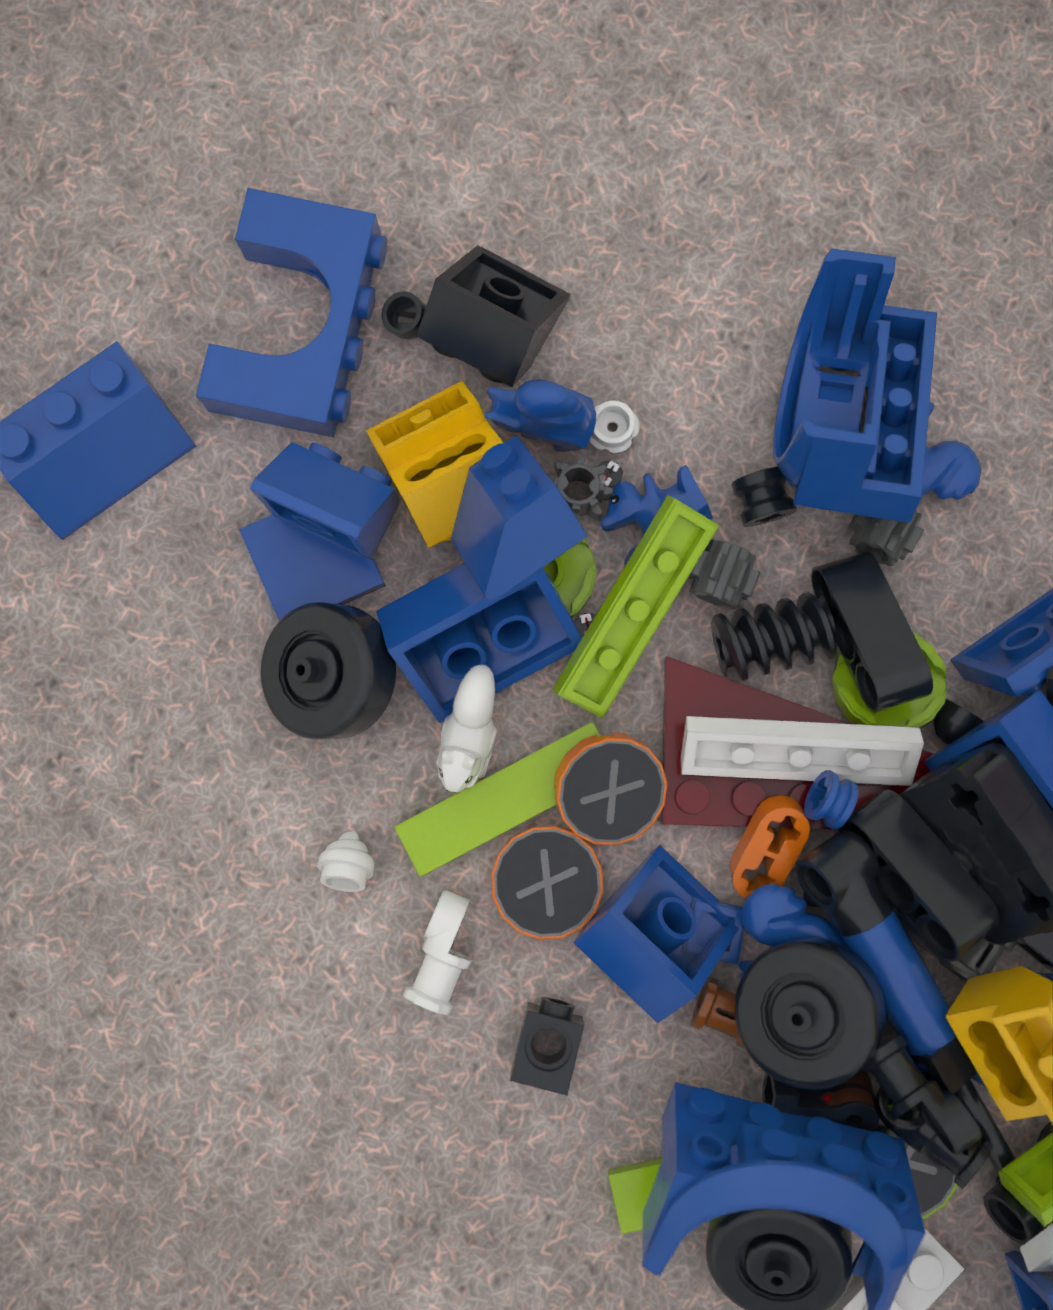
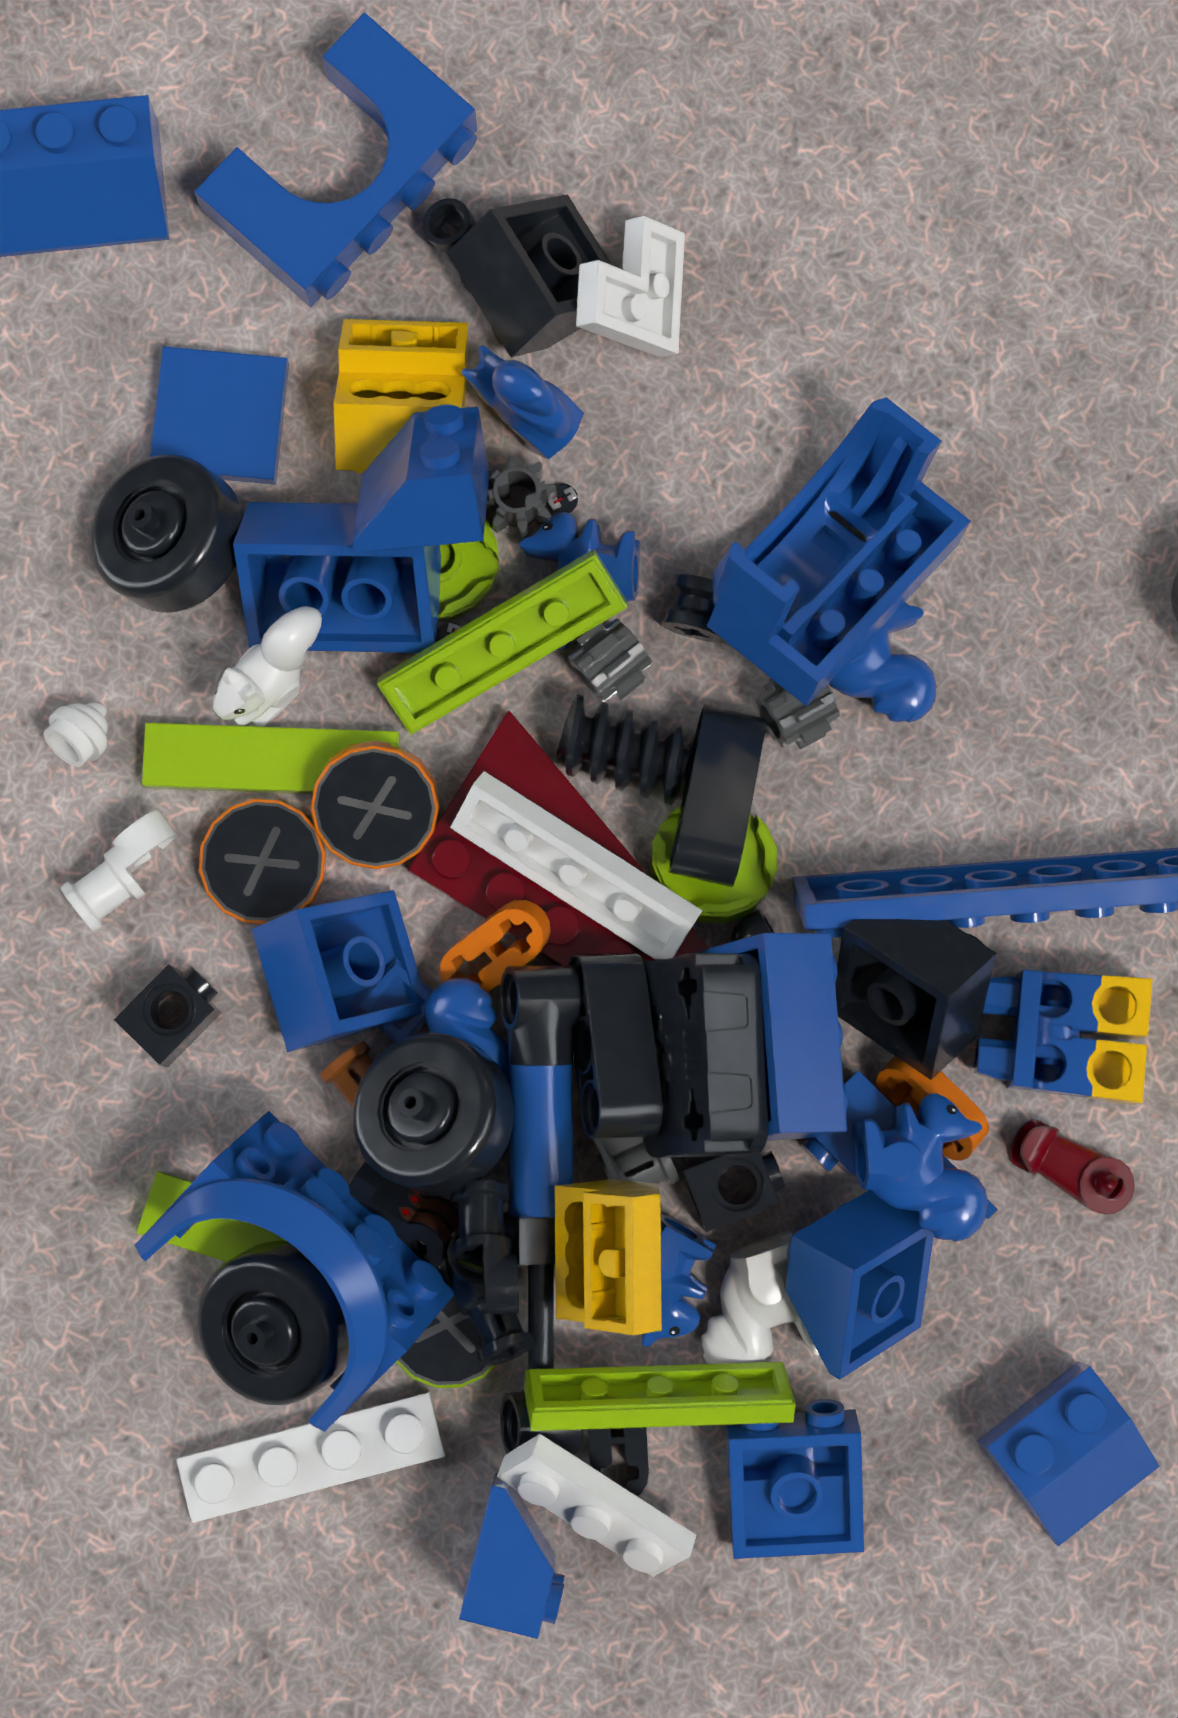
camera: 25 degrees right, 0 degrees up
(327, 497) = (265, 365): blue slope -> none
(578, 287) = (643, 299): none -> white plate
(626, 422) = (597, 438): white plate -> none
(831, 799) = (575, 930): blue bush -> none

